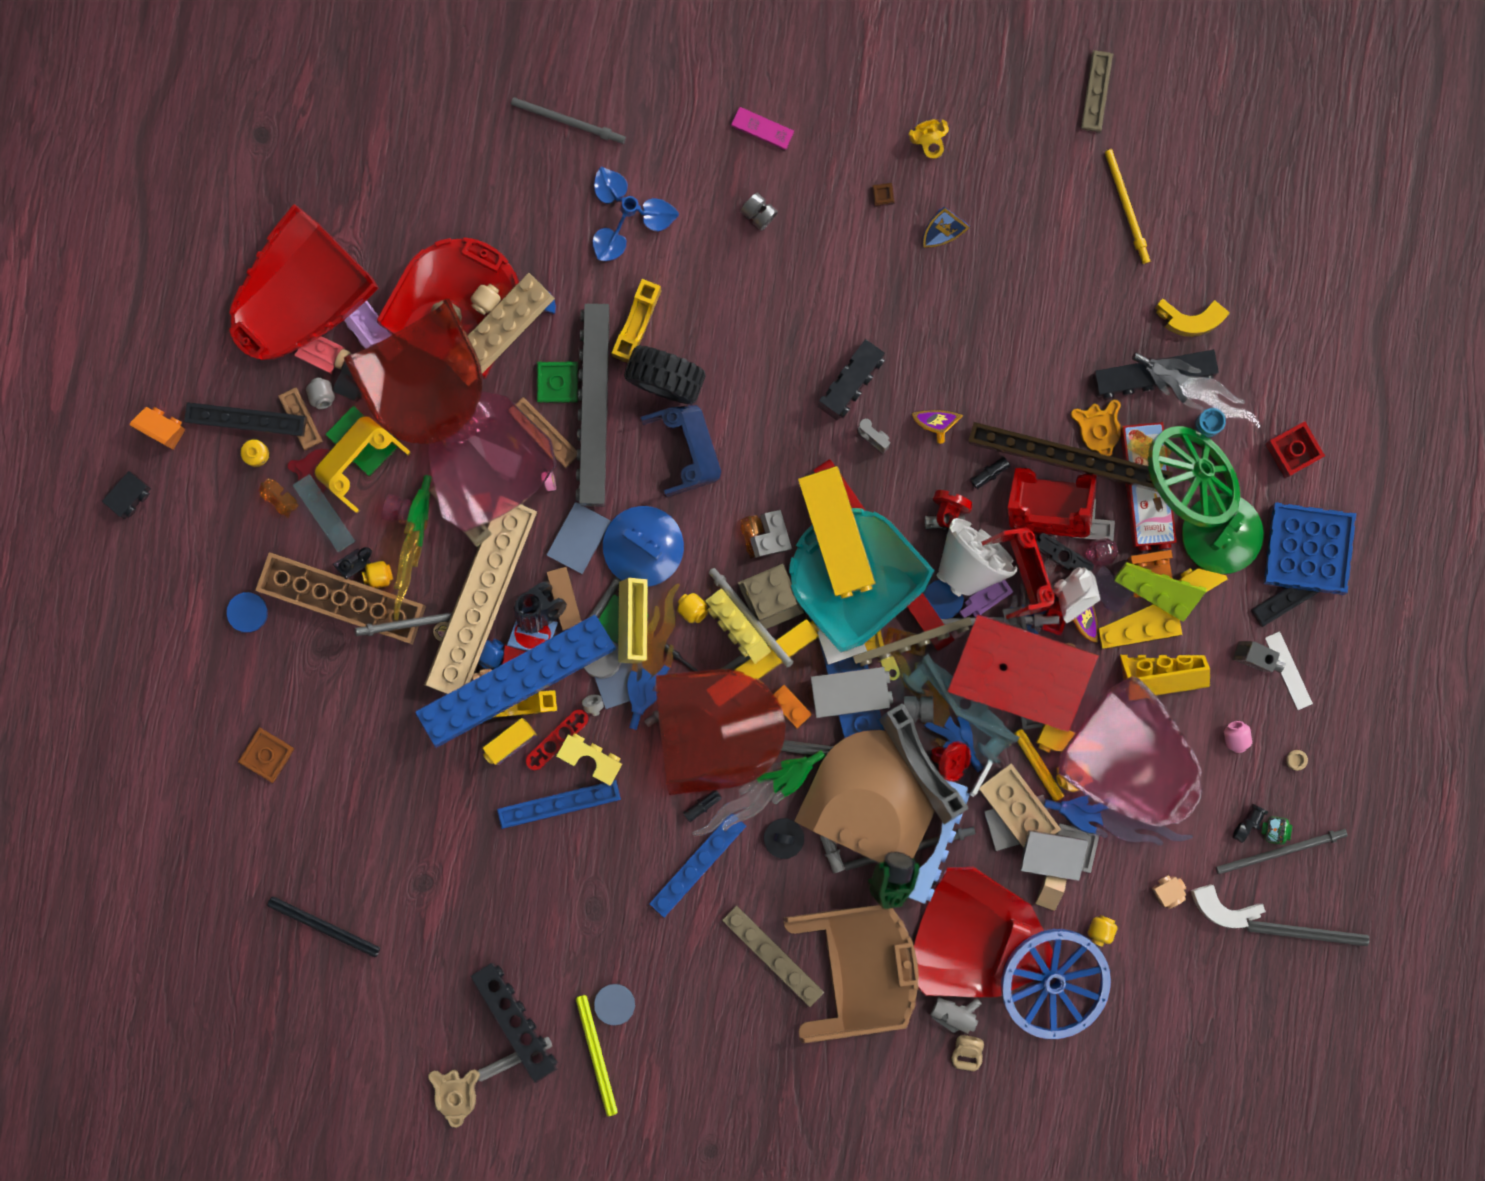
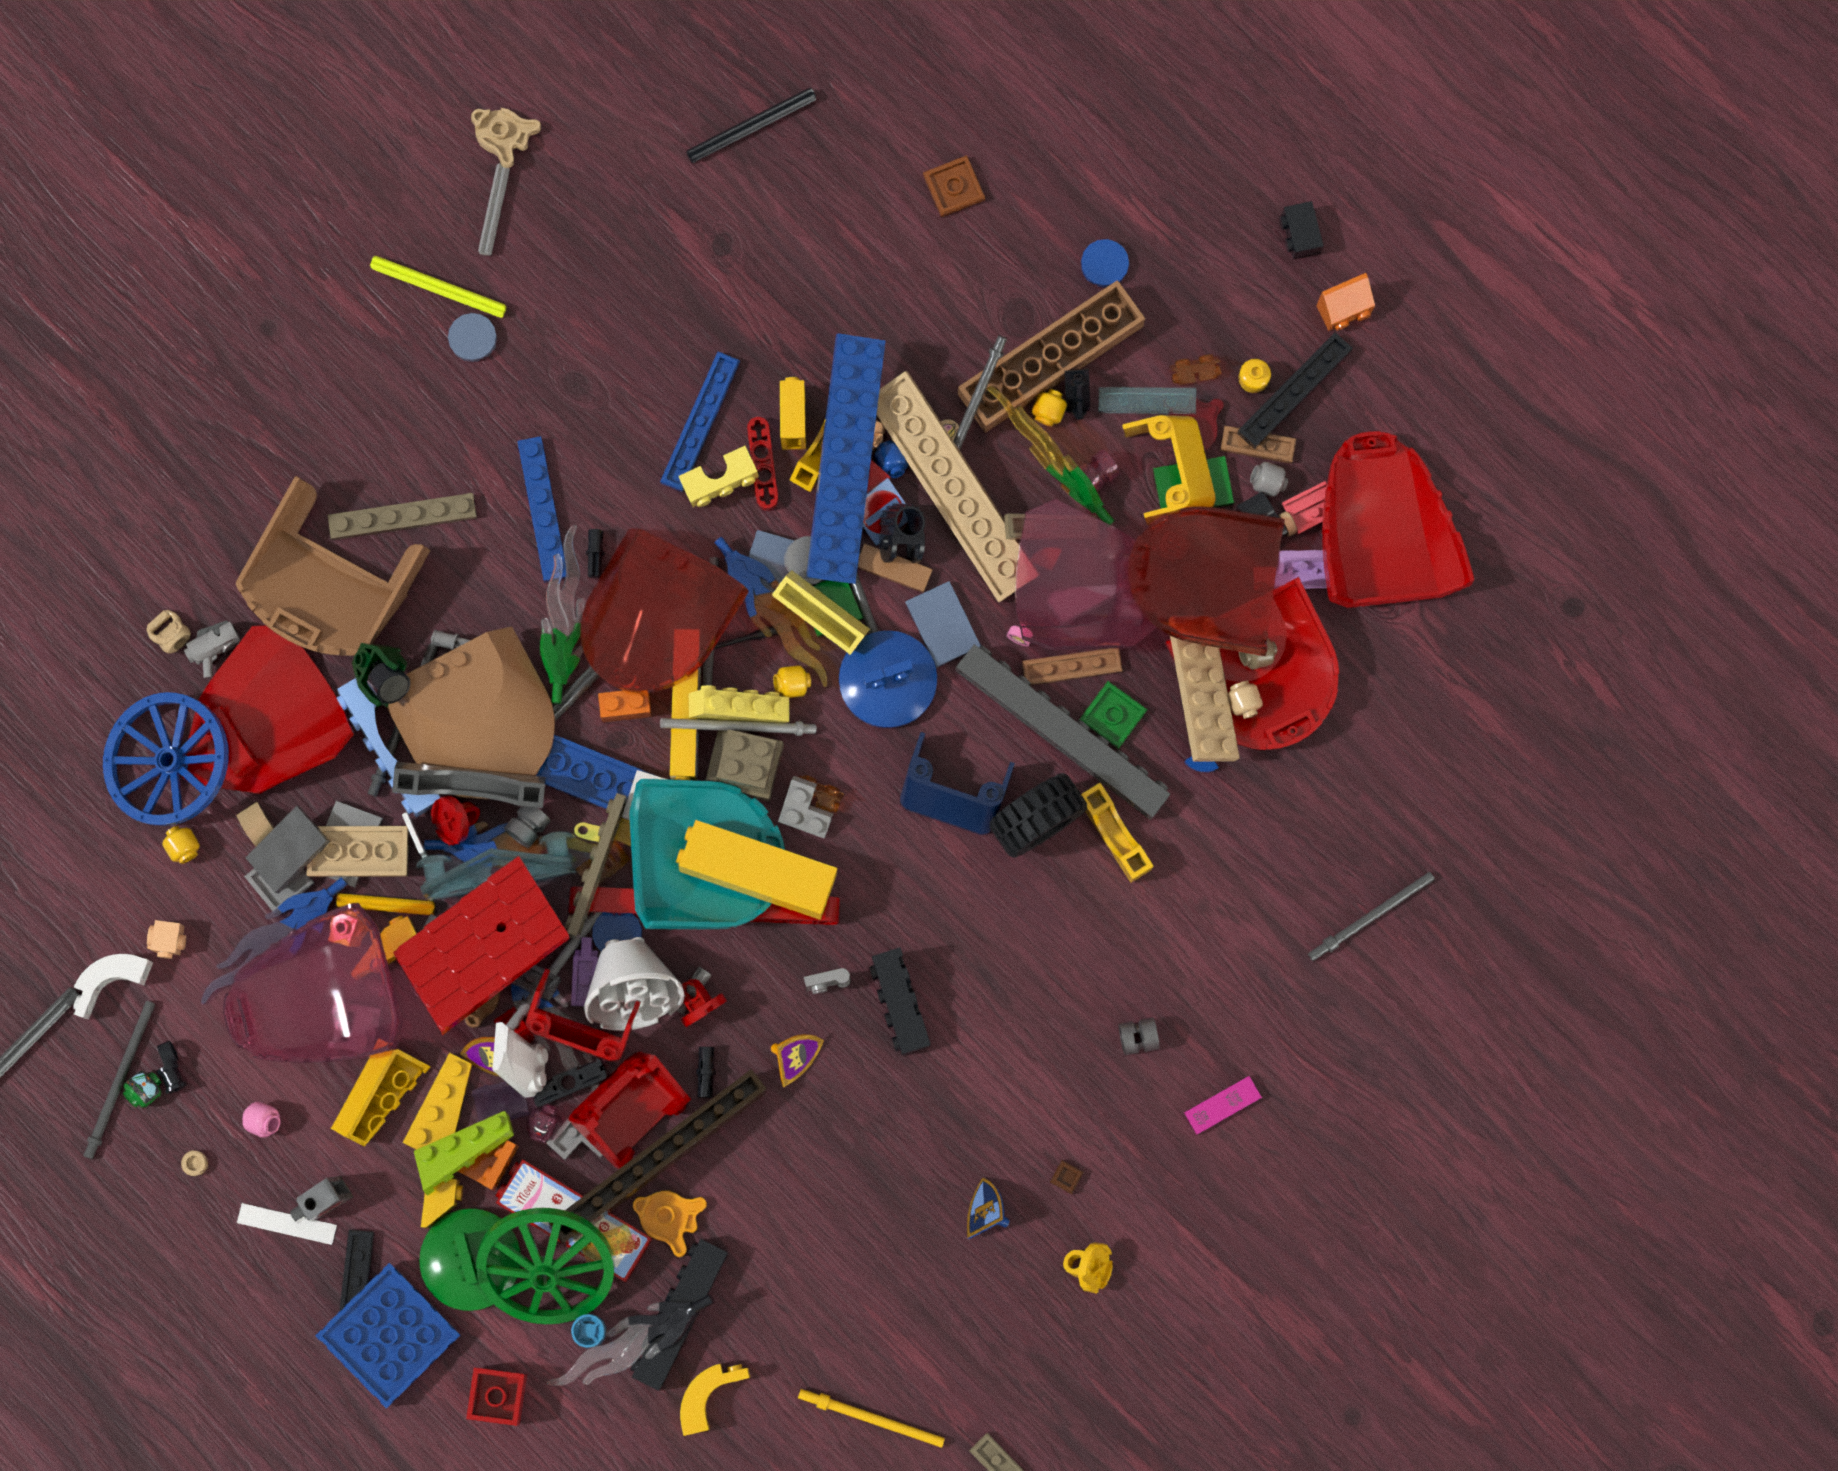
camera: 125 degrees right, 5 degrees down
(493, 999) = (516, 222): black brick -> none
(593, 704) = (770, 520): light grey tile -> none
(612, 186) = (1208, 933): blue plant -> none
(784, 838) = (504, 607): black tile -> none
(851, 692) = (593, 770): light grey brick -> none

